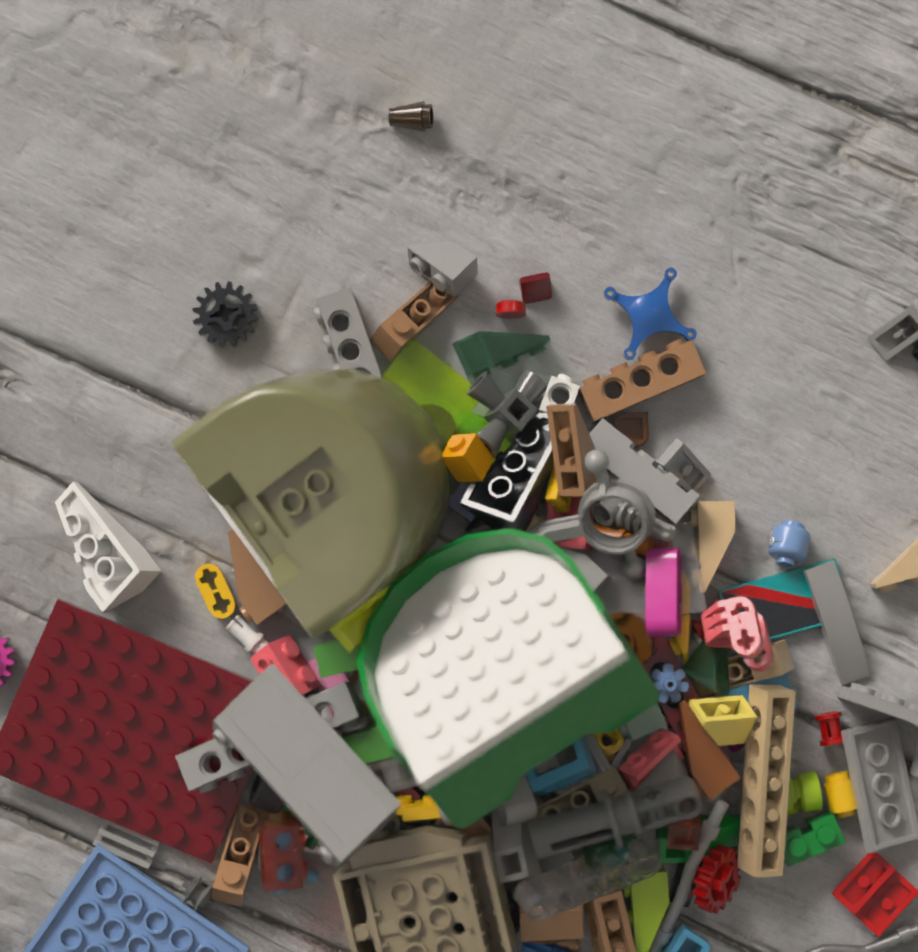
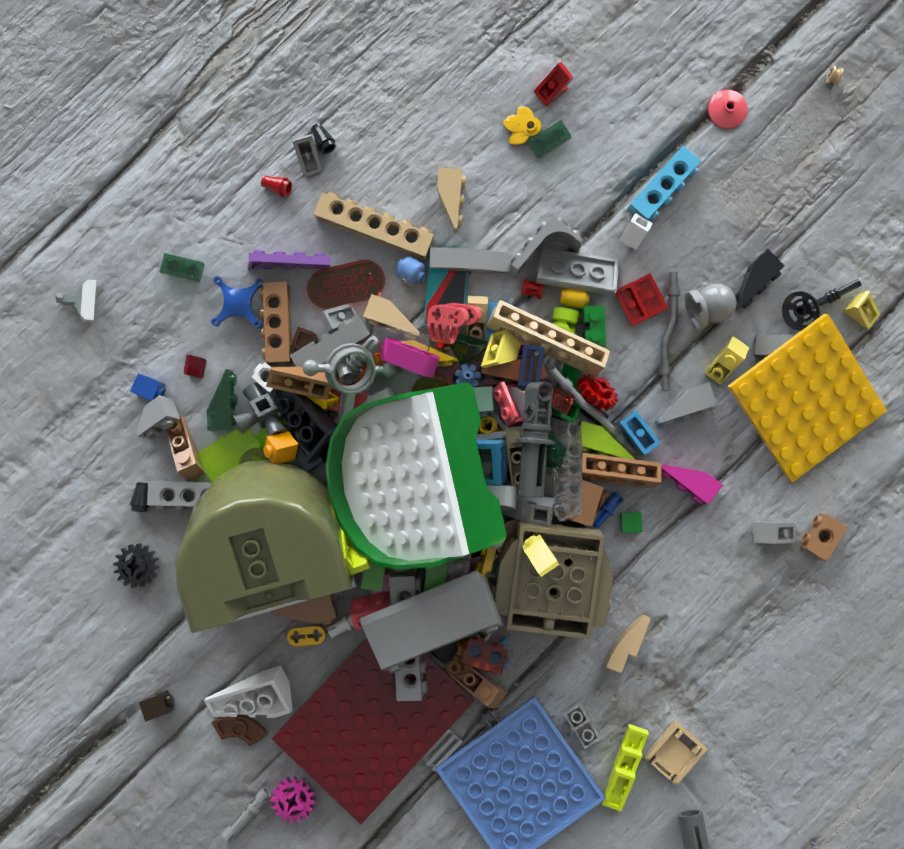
camera: 75 degrees left, 0 degrees up
(43, 419) = (157, 705): none -> dark brown brick
(54, 546) = (240, 727): none -> reddish brown tile
(321, 283) = (139, 498): none -> black cone
(412, 116) = (58, 402): dark brown cone -> none
(456, 885) = (540, 554): none -> light yellow slope
(481, 234) = (147, 387): none -> blue brick
(510, 309) = (202, 386): red tile -> none
(569, 94) = (82, 300): none -> piece
(669, 215) = (182, 267): none -> clear green plate
(687, 765) = (531, 362): none -> dark blue tile
(724, 334) = (270, 261): none -> medium lavender wing
(735, 456) = (345, 284): none -> clear red tile
(824, 481) = (330, 201): none -> tan brick
(840, 306) = (278, 185): none -> red cone

